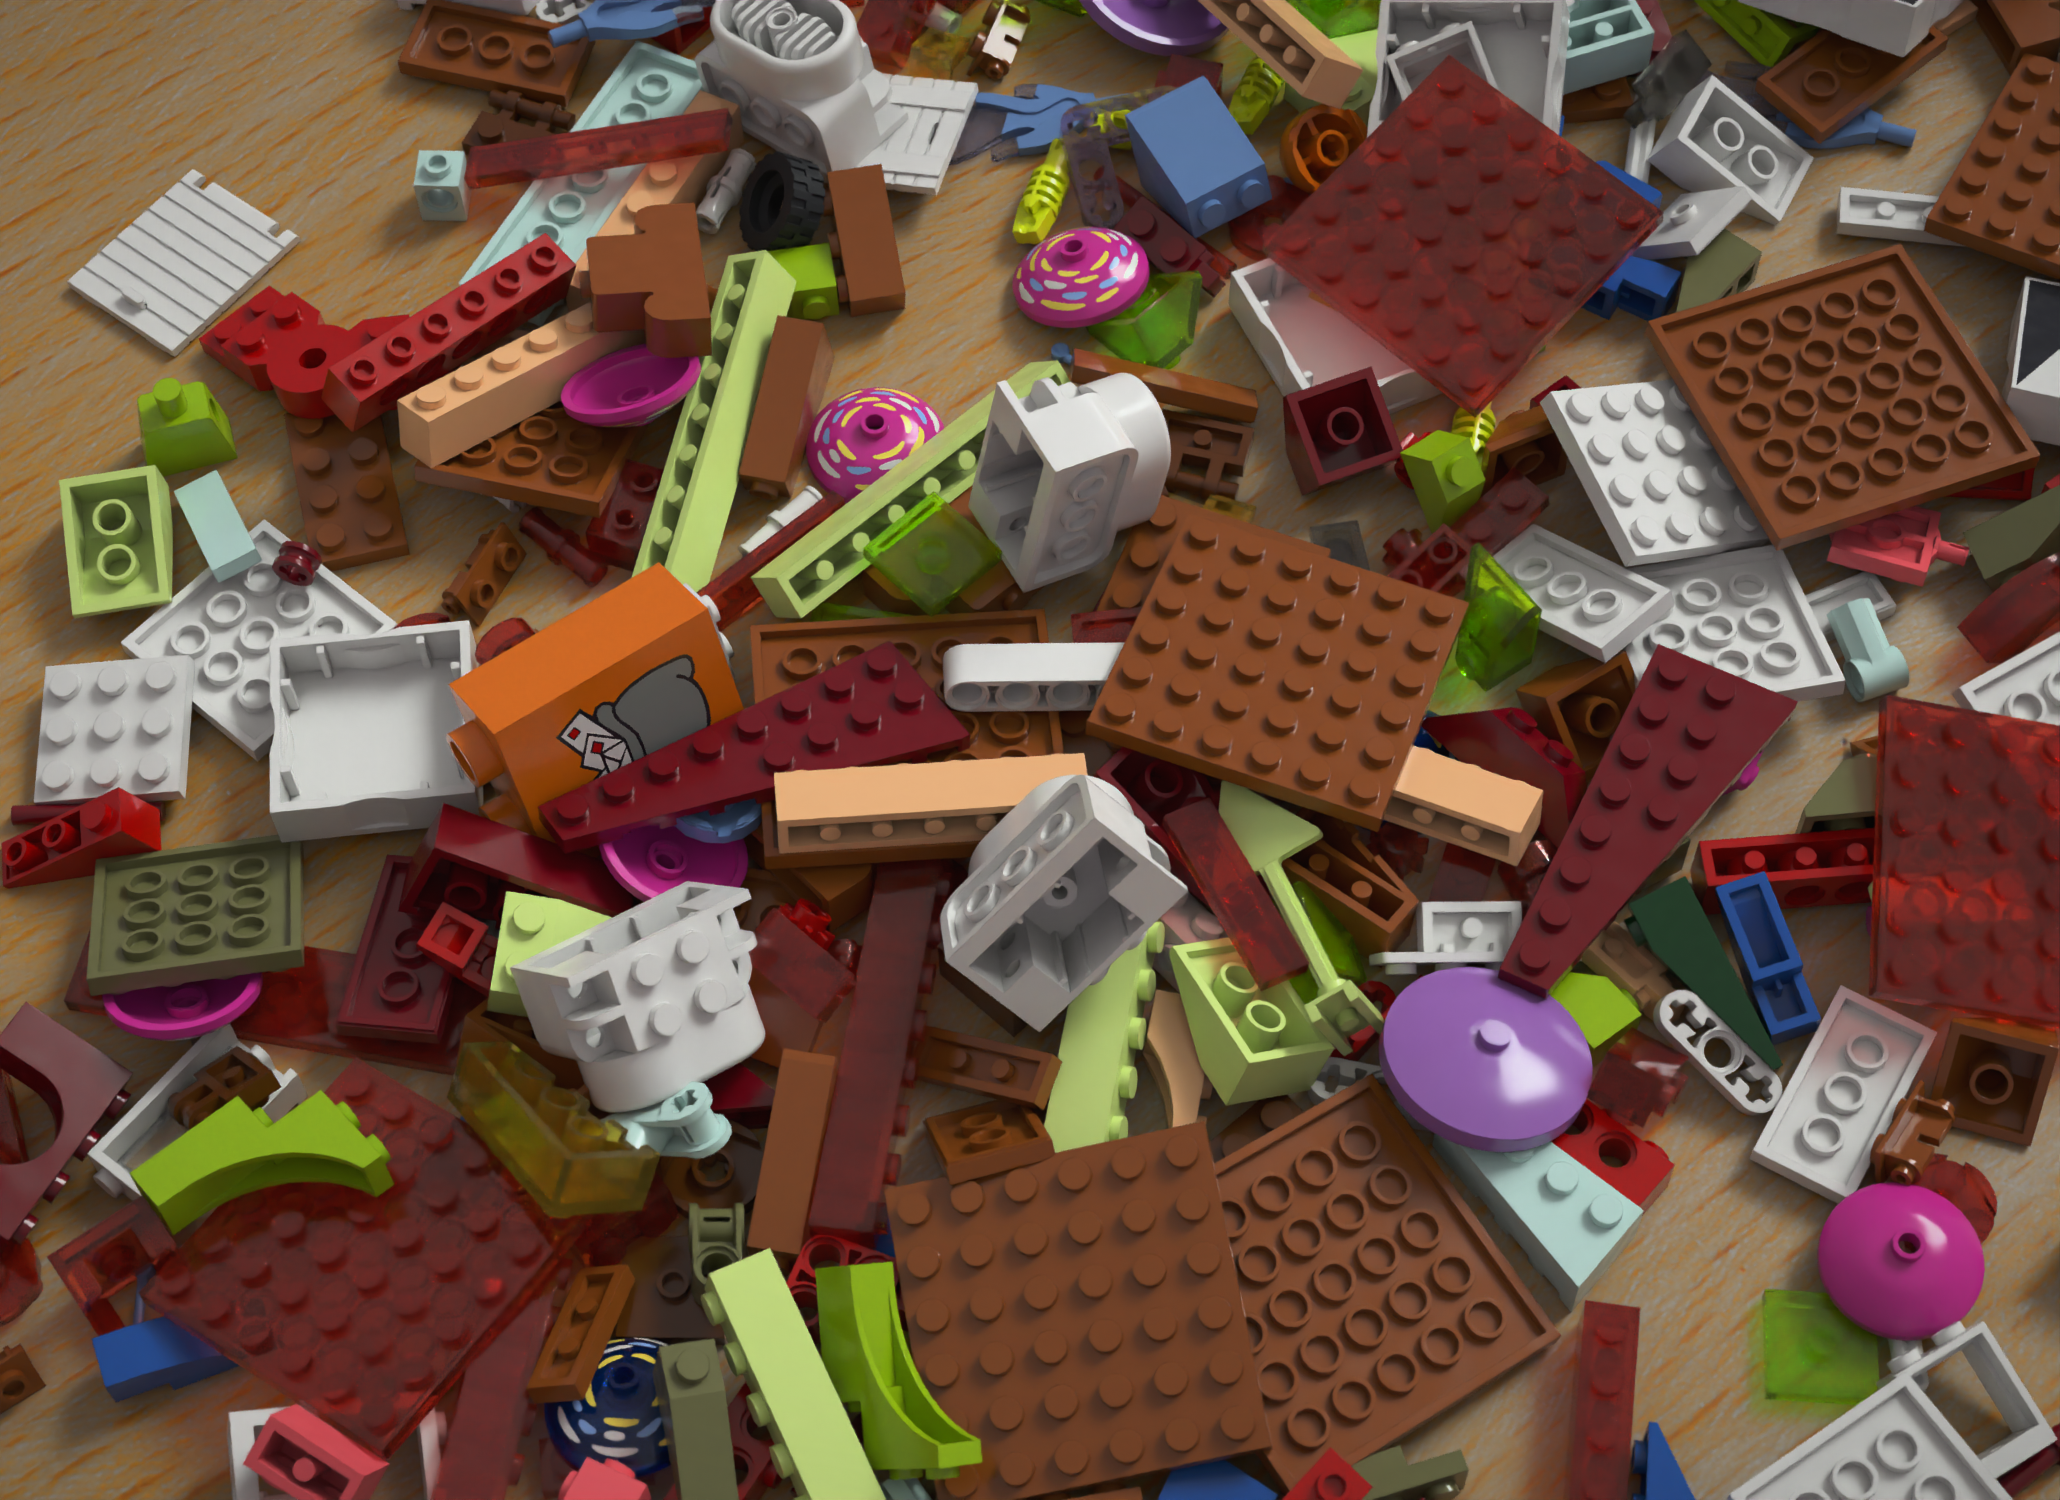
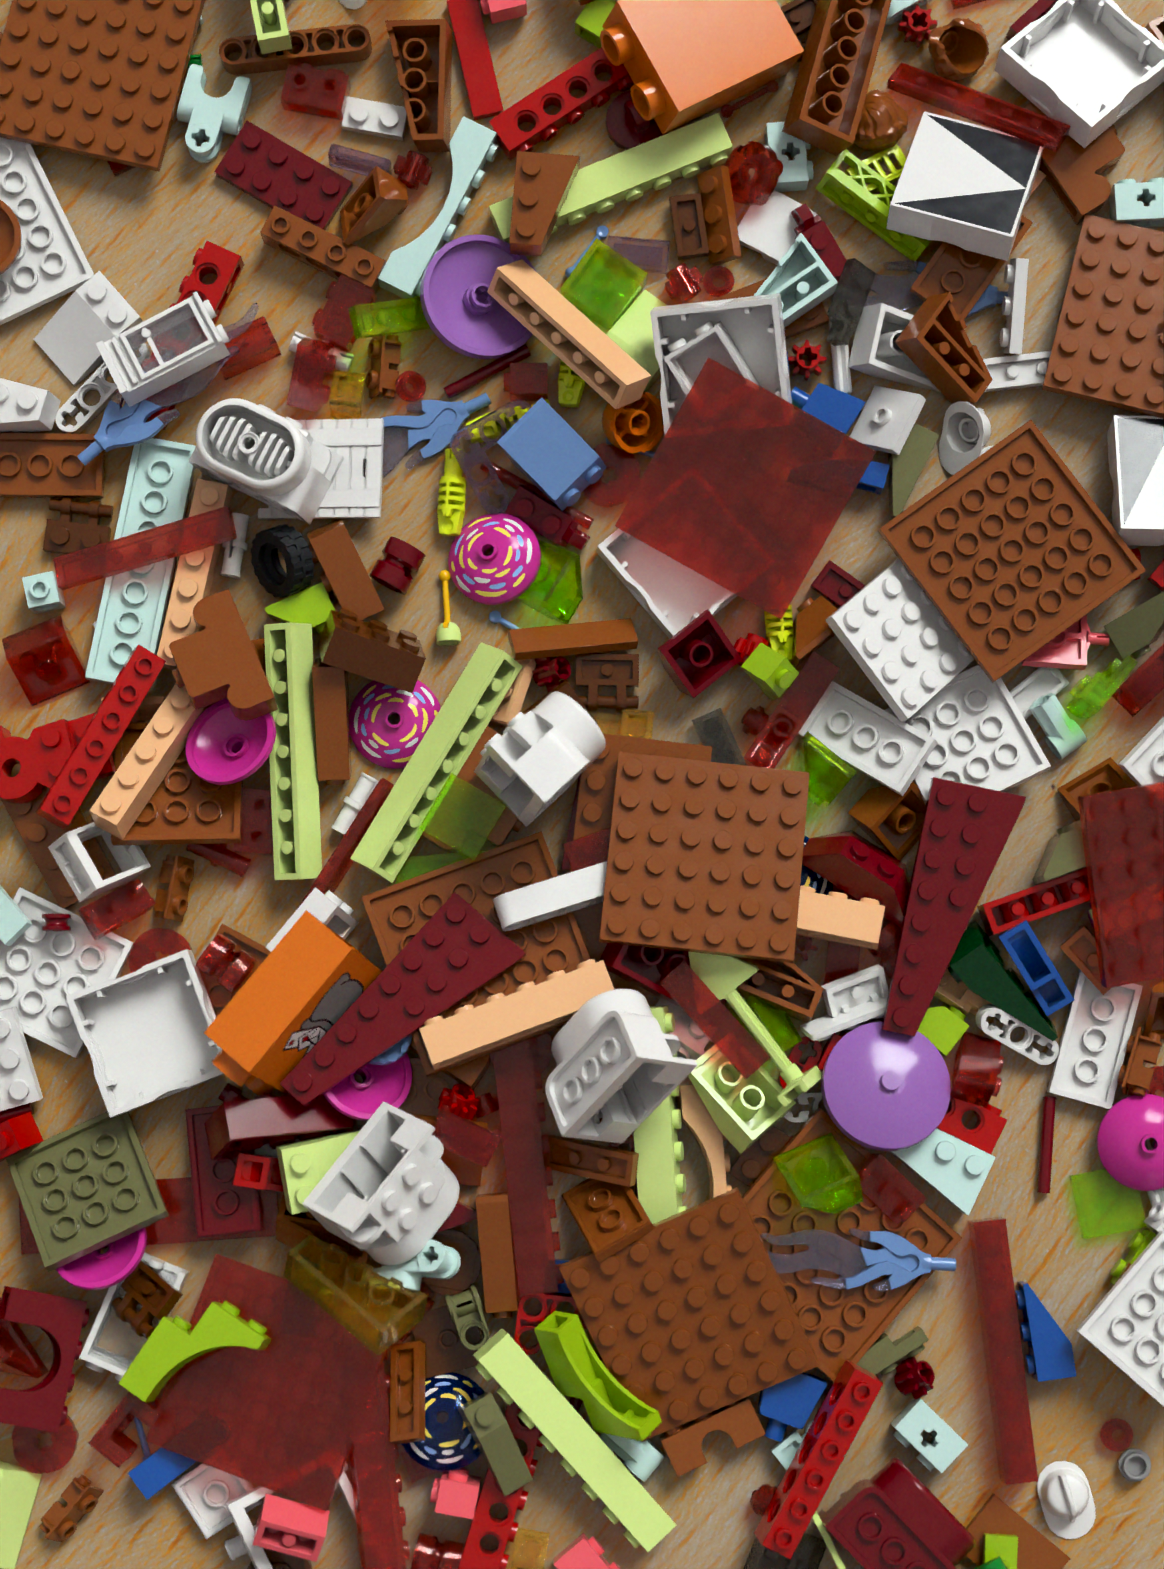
camera: 20 degrees left, 25 degrees up
(197, 1423) = (205, 1495): none -> white plate
(354, 469) = (80, 869): none -> white window
(390, 578) = (116, 909): none -> clear red hinge
(410, 262) = (45, 660): none -> clear red slope
(870, 321) = (371, 650): none -> reddish brown brick
(942, 253) = (398, 564): none -> dark red wheel
(990, 344) = (447, 632): none -> hinge
(1028, 64) = (416, 381): none -> clear red plate
(1122, 76) = (486, 372): none -> dark red bar
(1353, 1158) = (821, 1175): none -> clear neon green slope
(1370, 1314) = (854, 1263): none -> piece
(1454, 1211) = (889, 1188): none -> clear red hinge
(1592, 137) = (799, 364): none -> red gear
(1732, 1237) = (1046, 1144): none -> dark red bar
(1790, 155) = (943, 351): none -> dark orange wedge
(1800, 248) = (962, 436): none -> white piece
(1847, 956) = (1083, 952): none -> dark orange panel
(1903, 127) = (1014, 305): none -> white plate
(1939, 602) = (1094, 691): none -> clear neon green plate

